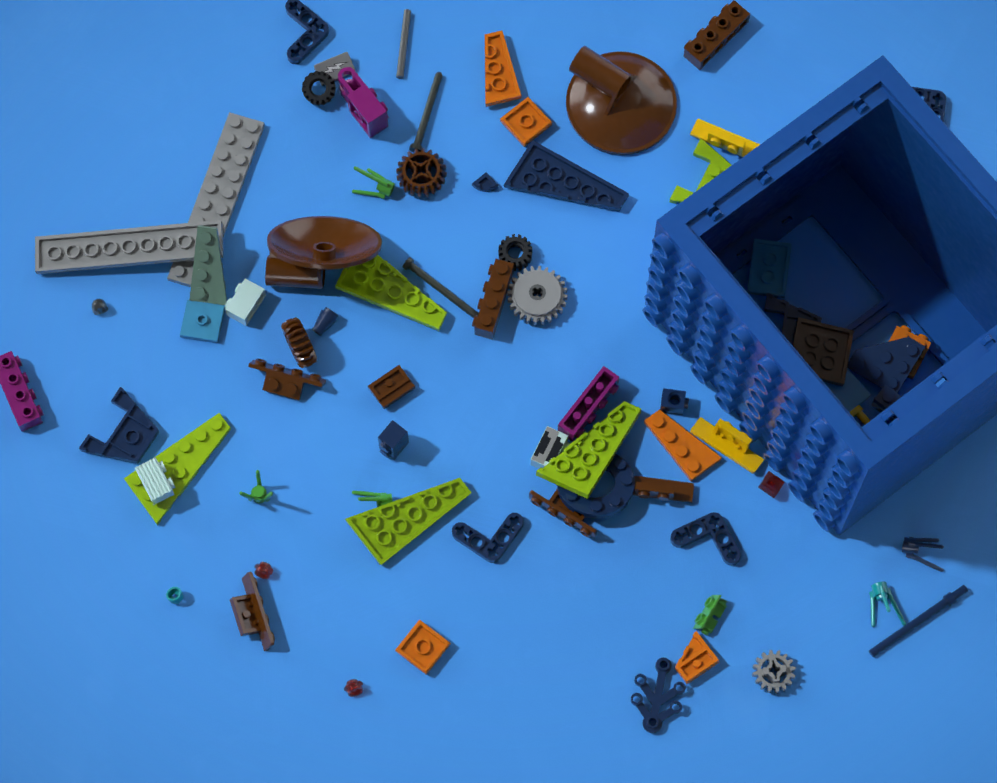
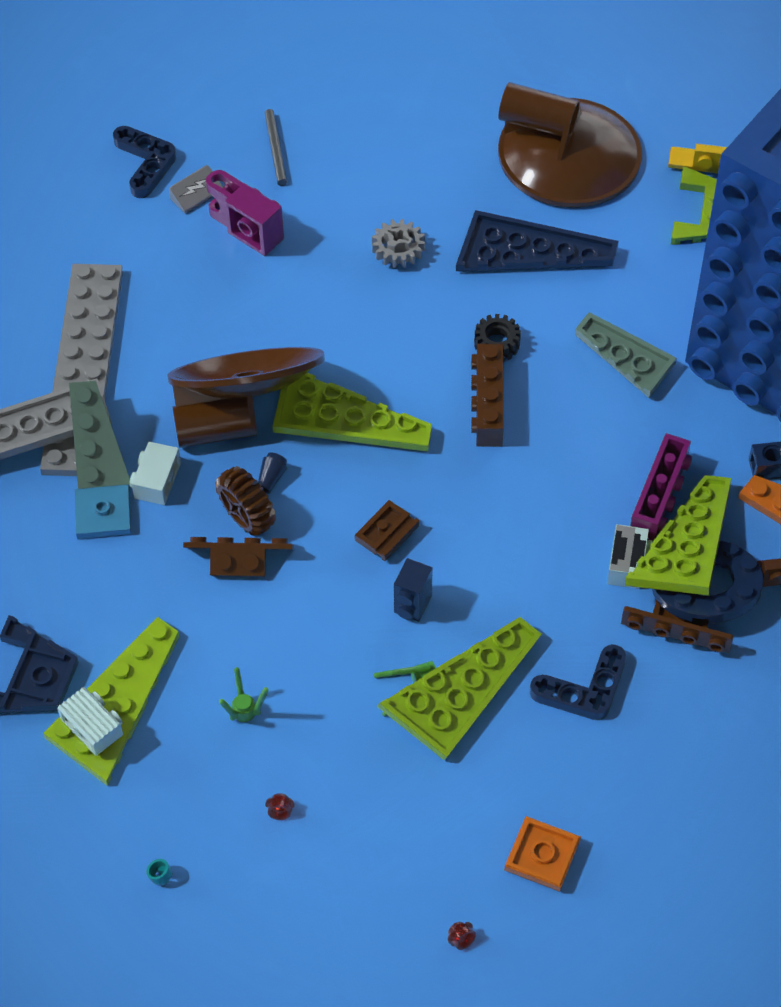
camera: 15 degrees left, 15 degrees down
(250, 613) = (280, 869): bracket -> none
(310, 80) = (182, 197): black tyre -> none
(384, 185) = (302, 301): bright green plant -> none
(409, 264) = (363, 382): pearl dark grey bar -> none
(426, 114) = (329, 251): pearl dark grey bar -> none
(428, 161) = (346, 281): reddish brown gear -> none
(468, 162) = (398, 243): none -> light grey gear
(485, 183) = (430, 272): dark blue tile -> none
(500, 77) = (407, 151): orange wing -> none
(526, 121) = (459, 194): orange plate -> none
(537, 282) = (544, 379): light grey gear -> none
(604, 289) = (631, 356): none -> sand green wing
(716, 34) = (659, 57): reddish brown brick -> none

